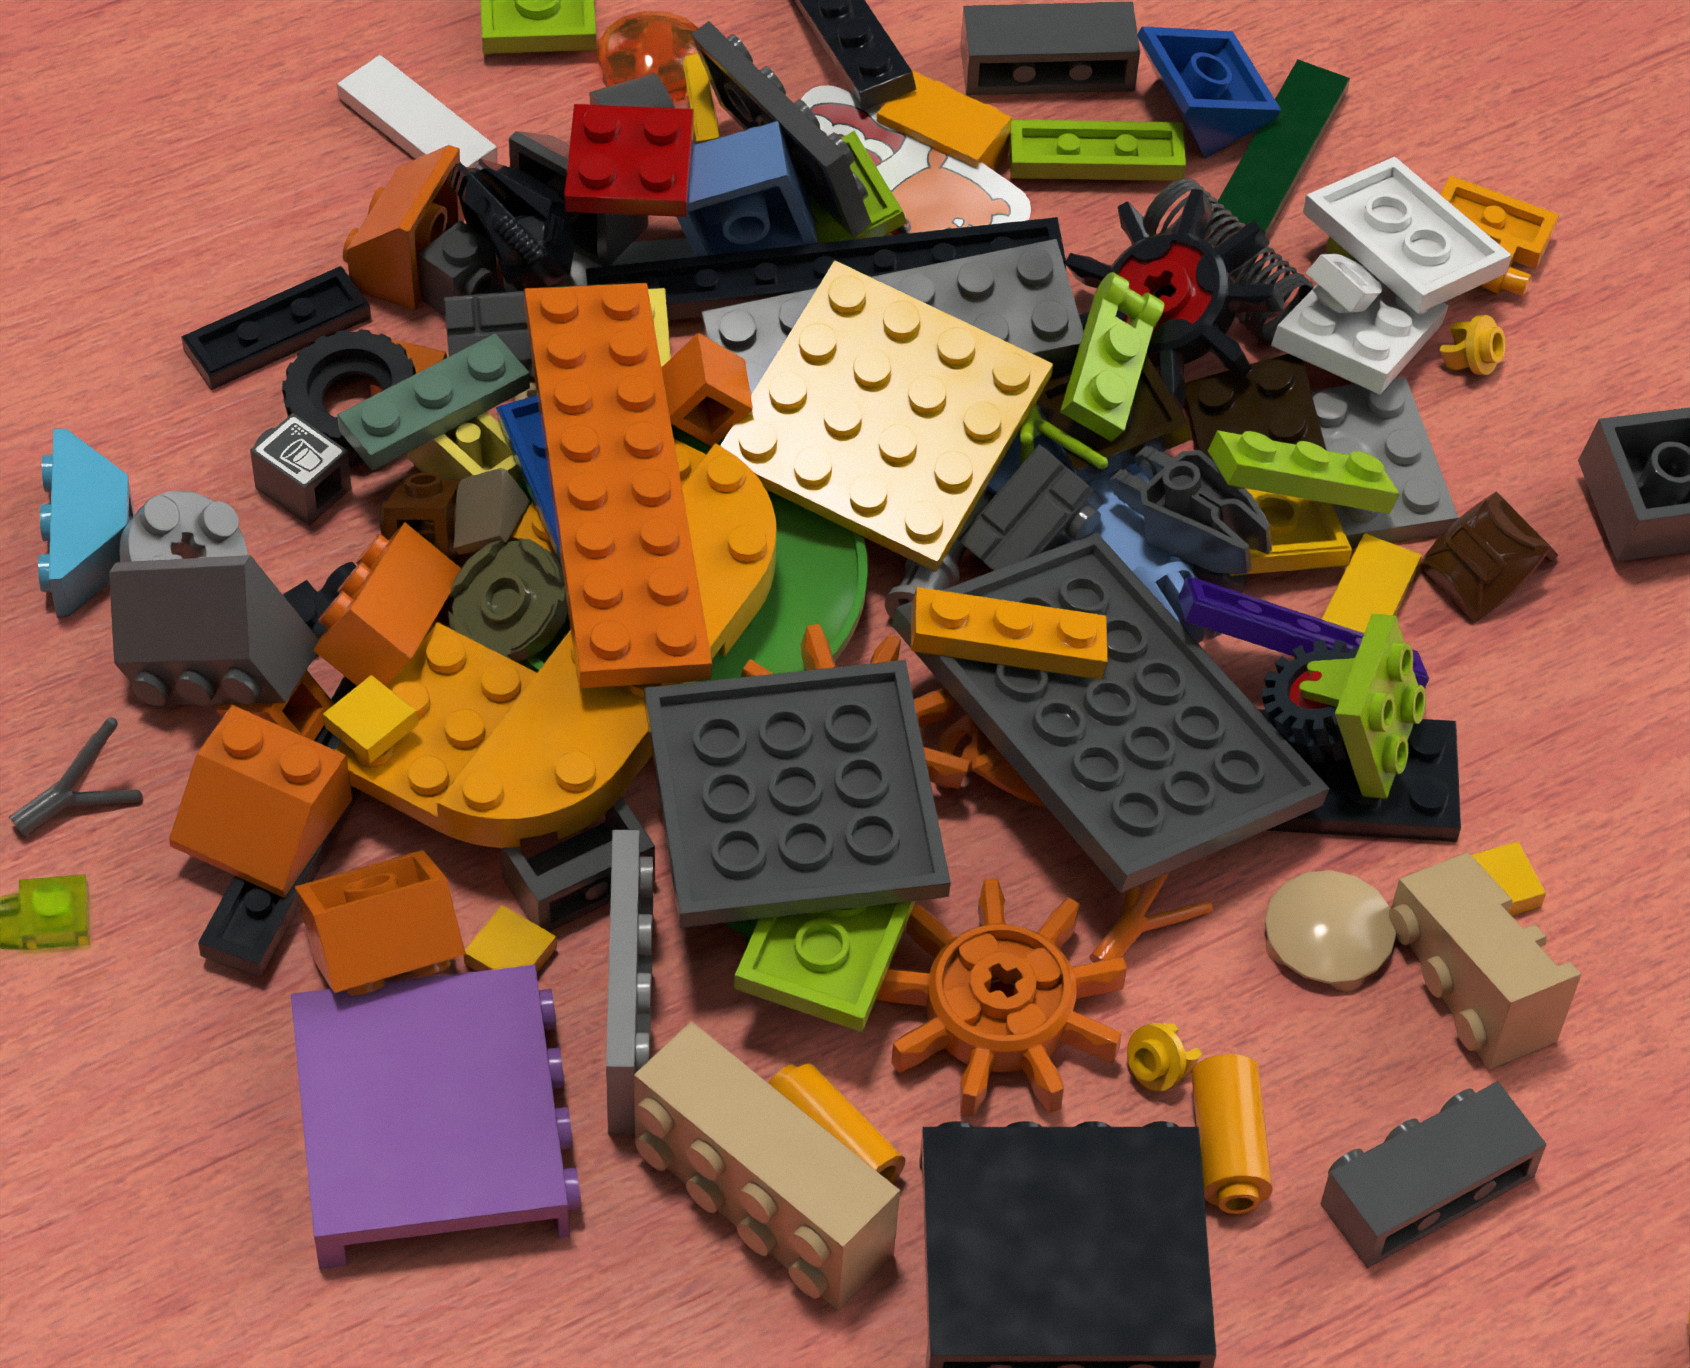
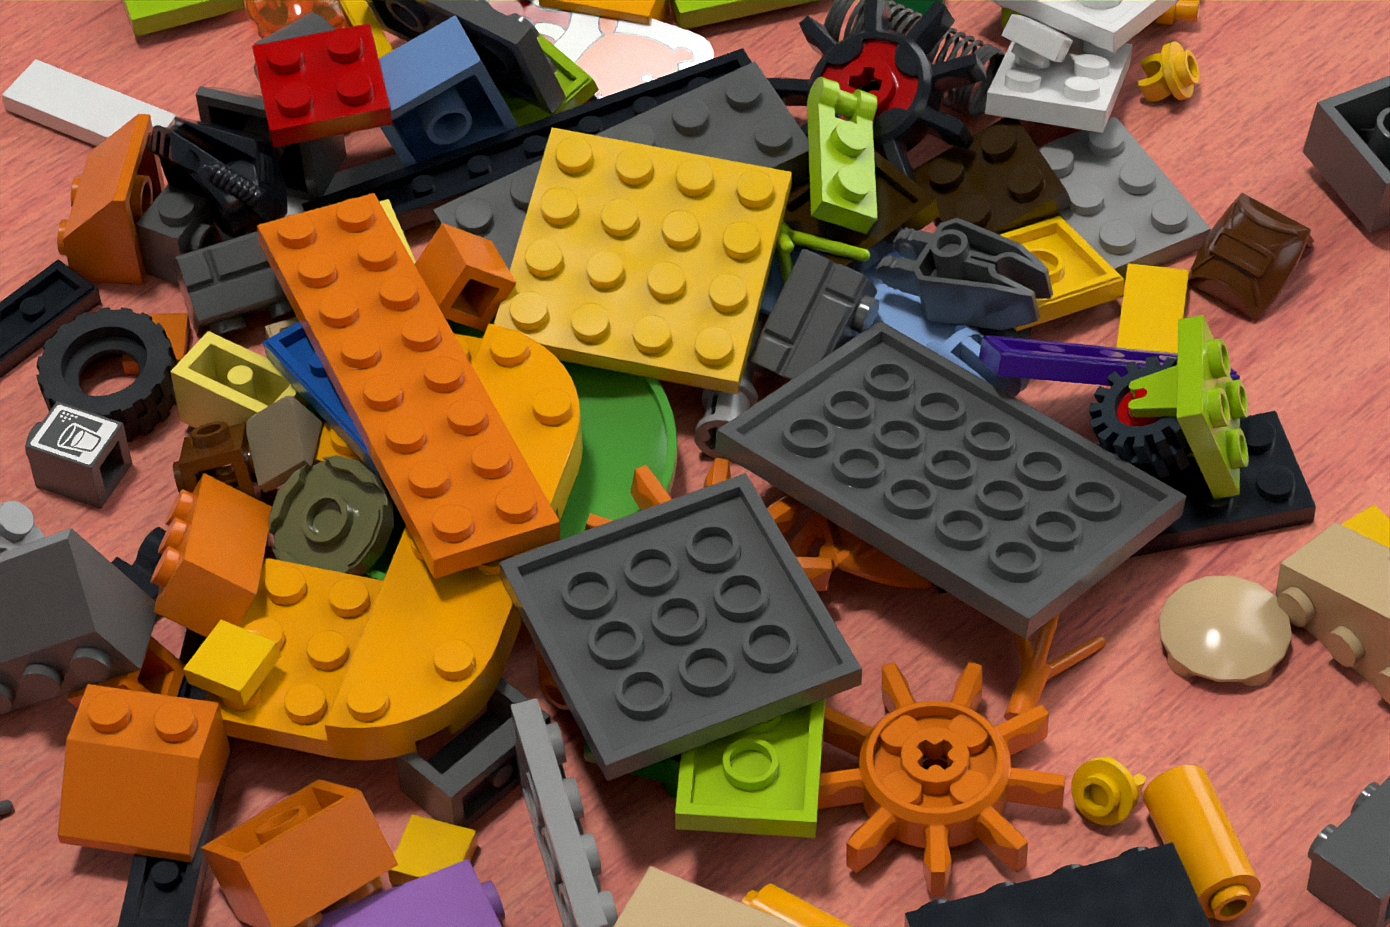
camera: 10 degrees left, 5 degrees down
(433, 401) = (197, 353): sand green plate -> none
(1008, 633) = (834, 426): light orange plate -> none
(1303, 471) = (1059, 214): lime plate -> none

